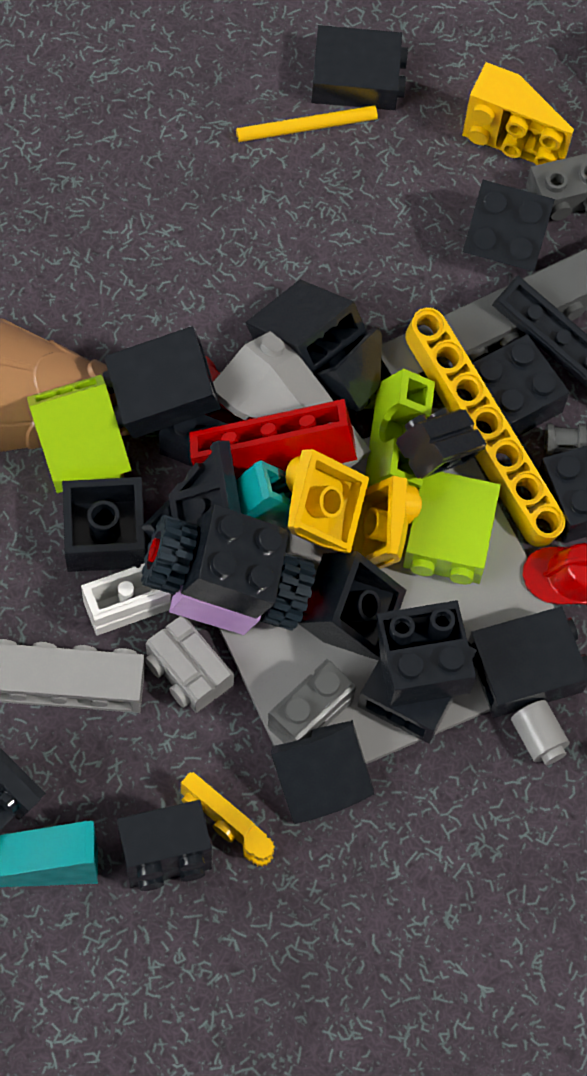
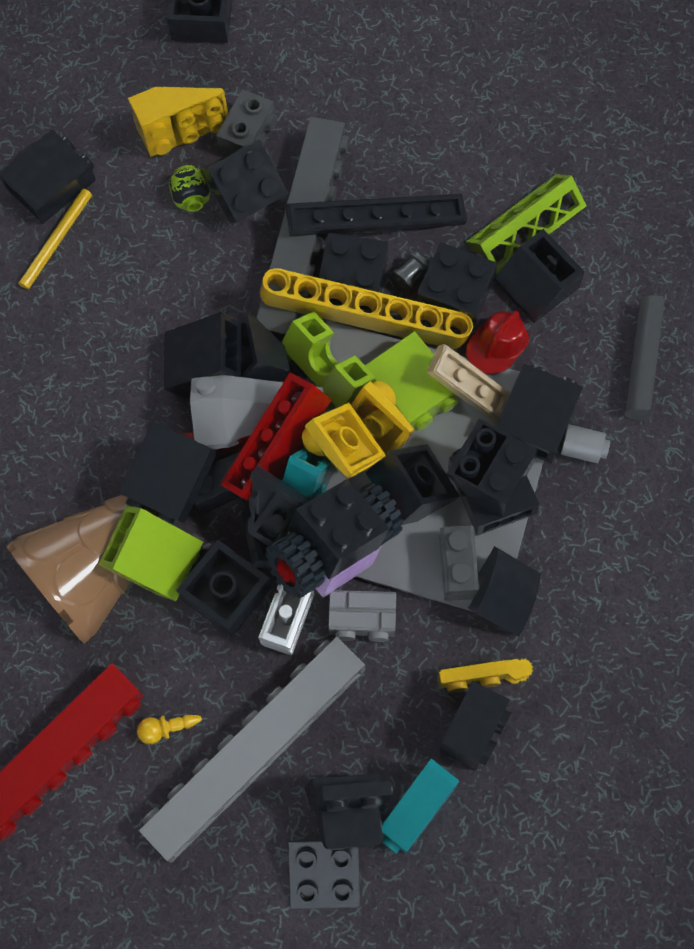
camera: 40 degrees left, 5 degrees up
(440, 442) = (359, 341): black brick -> none
(459, 189) = (189, 188): none -> head
(493, 568) = (468, 382): none -> tan tile

